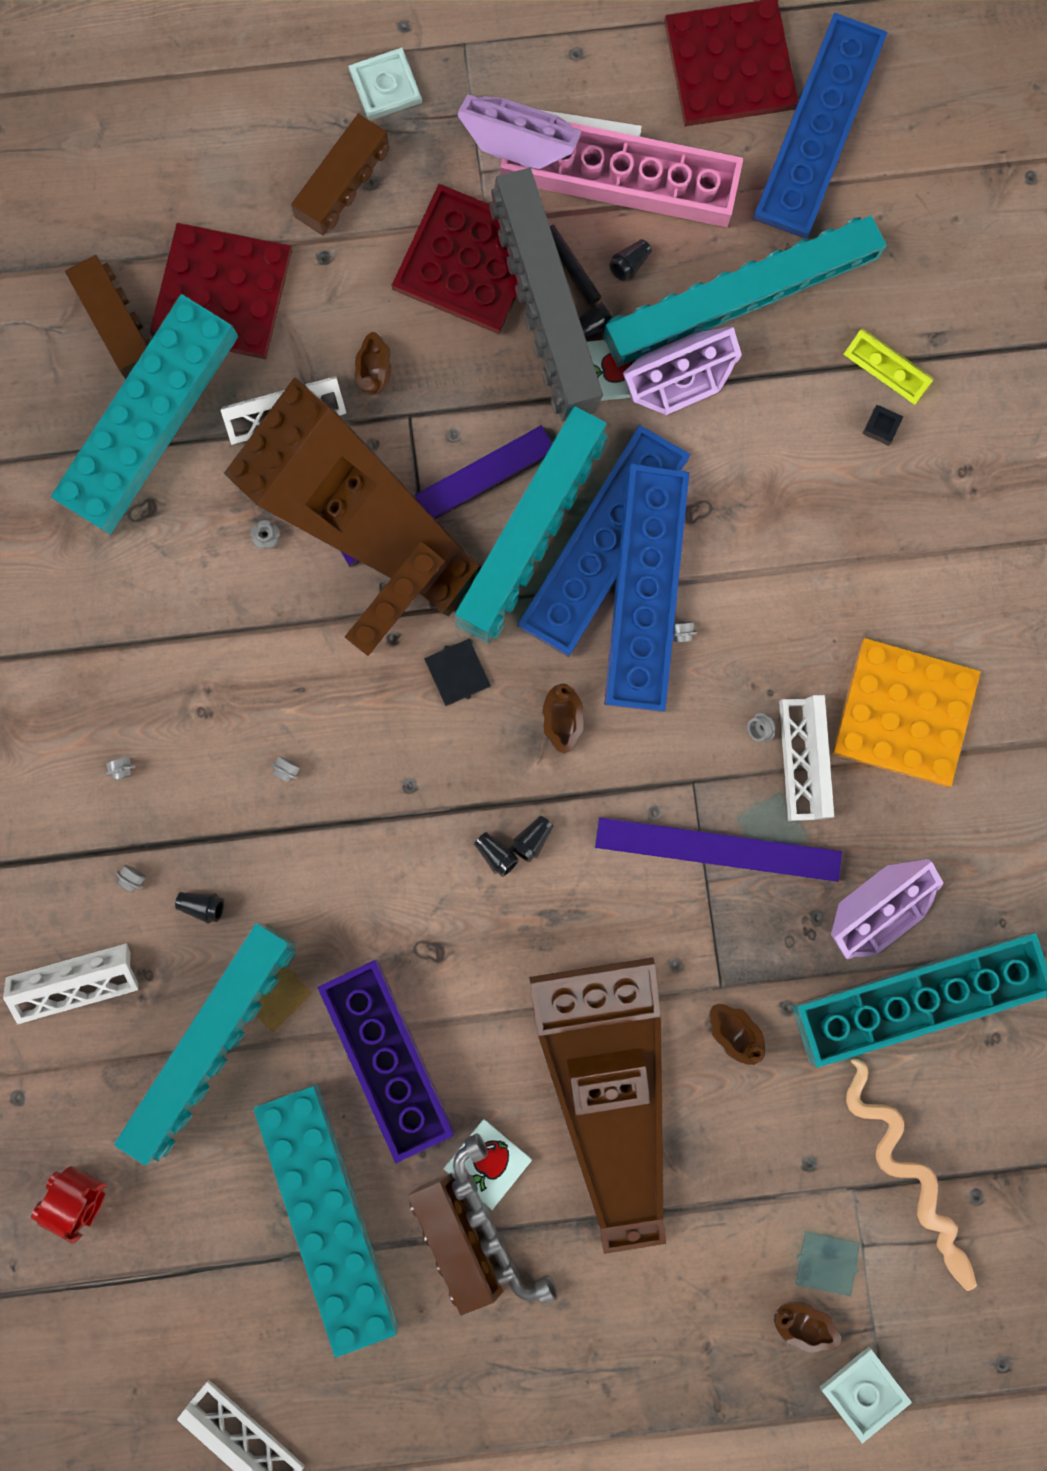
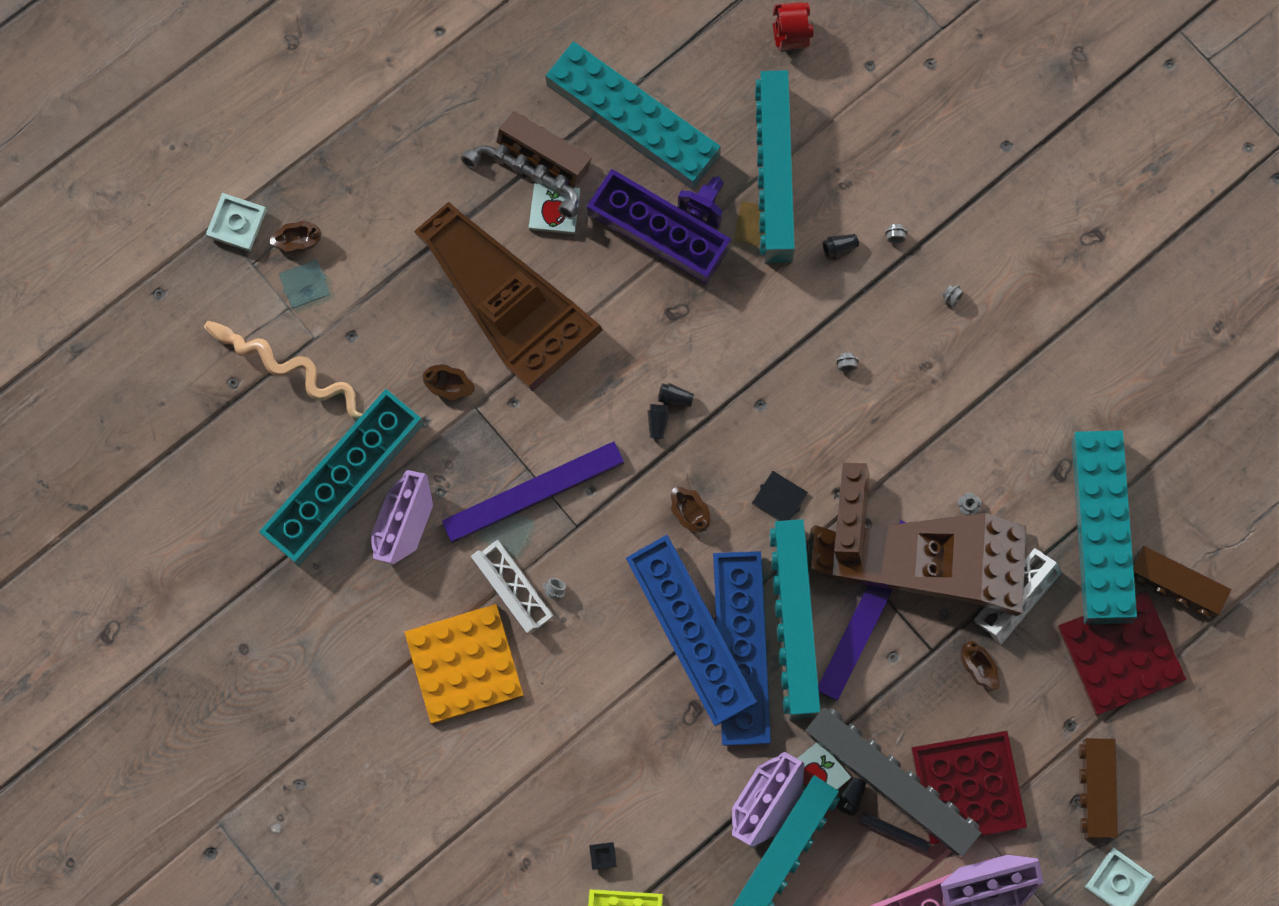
camera: 155 degrees right, 5 degrees down
(66, 979) = (889, 151): white fence -> none
(323, 1051) = (703, 204): none -> dark purple piece
(630, 260) = (856, 862): black cone -> none
(683, 631) = (648, 620): light grey plate -> none

